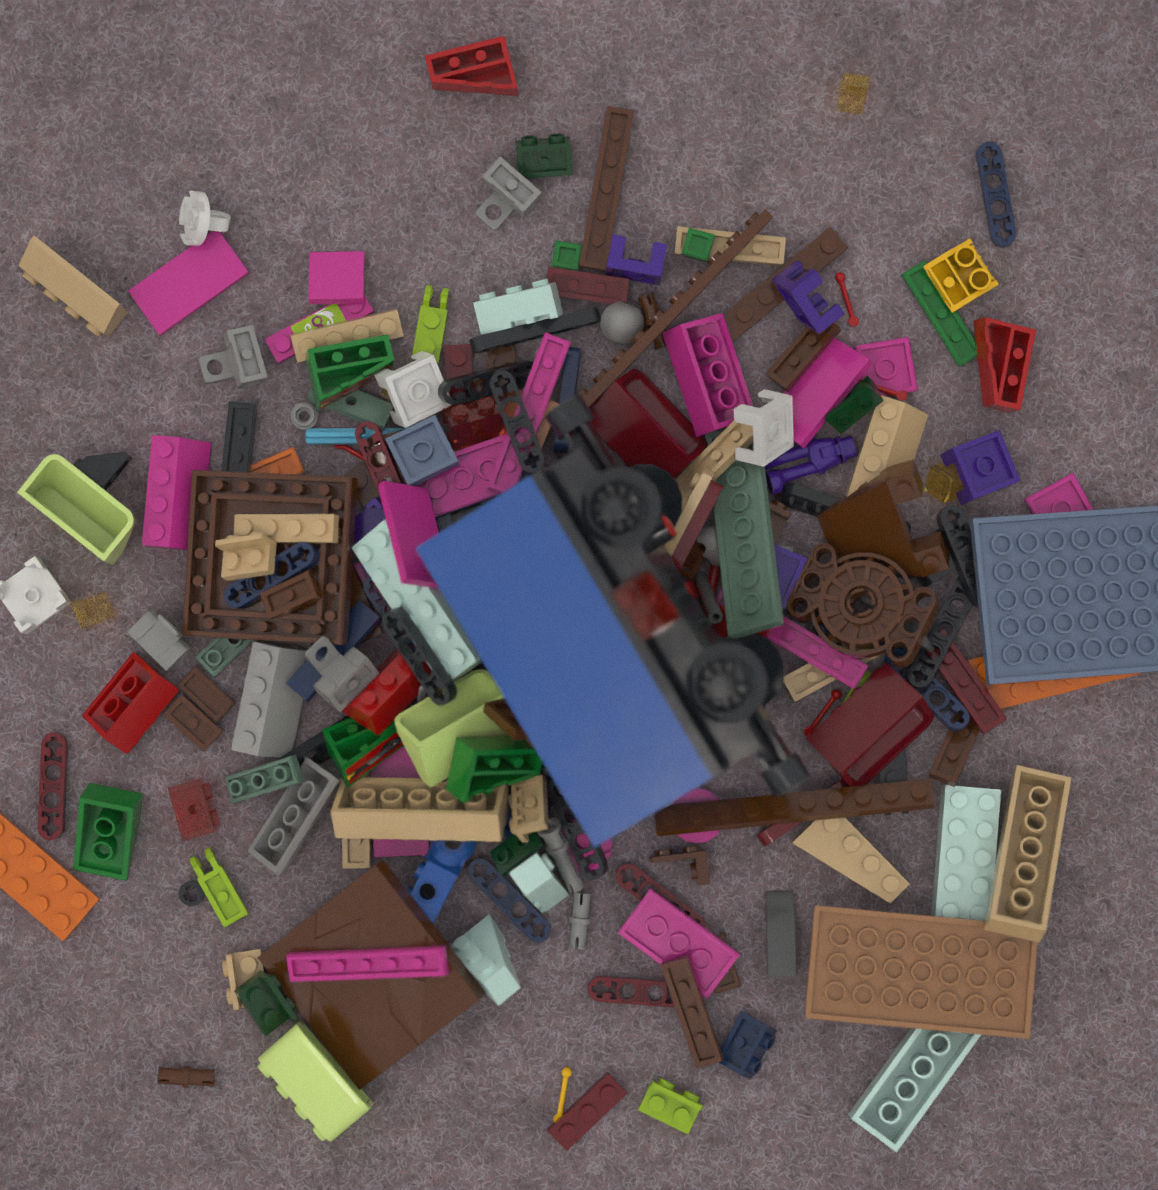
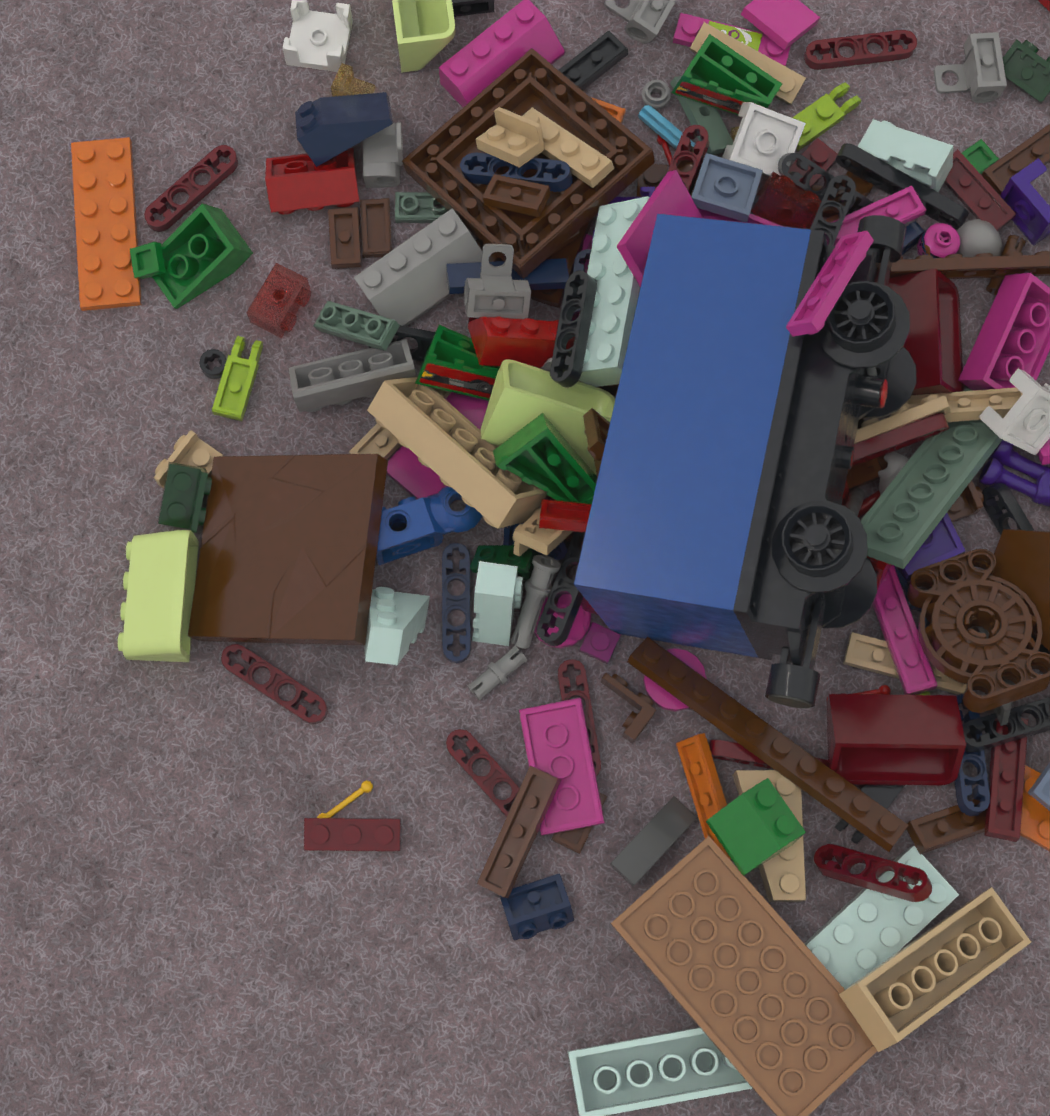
camera: 45 degrees right, 10 degrees down
(77, 867) = (147, 260): none -> green plate
(116, 649) = (340, 122): none -> dark blue slope
(186, 1076) = (65, 498): reddish brown pin -> none
(367, 963) = (294, 532): dark pink tile -> none
(416, 251) = (859, 44): none -> dark red beam
(443, 1062) = (276, 681): none -> dark red beam
(533, 789) = (564, 515): none -> red tile
(577, 505) = (829, 284): none -> dark pink plate
(599, 359) = (939, 241): none -> dark pink head
(628, 840) = (600, 643): none -> magenta plate
(644, 605) = (809, 417): clear red brick -> none
(670, 1105) = (425, 896): lime bracket -> none
(789, 873) = (702, 781): none -> orange tile
(839, 873) = (756, 827): none -> green slope
(936, 831) = (870, 875): none -> dark red beam

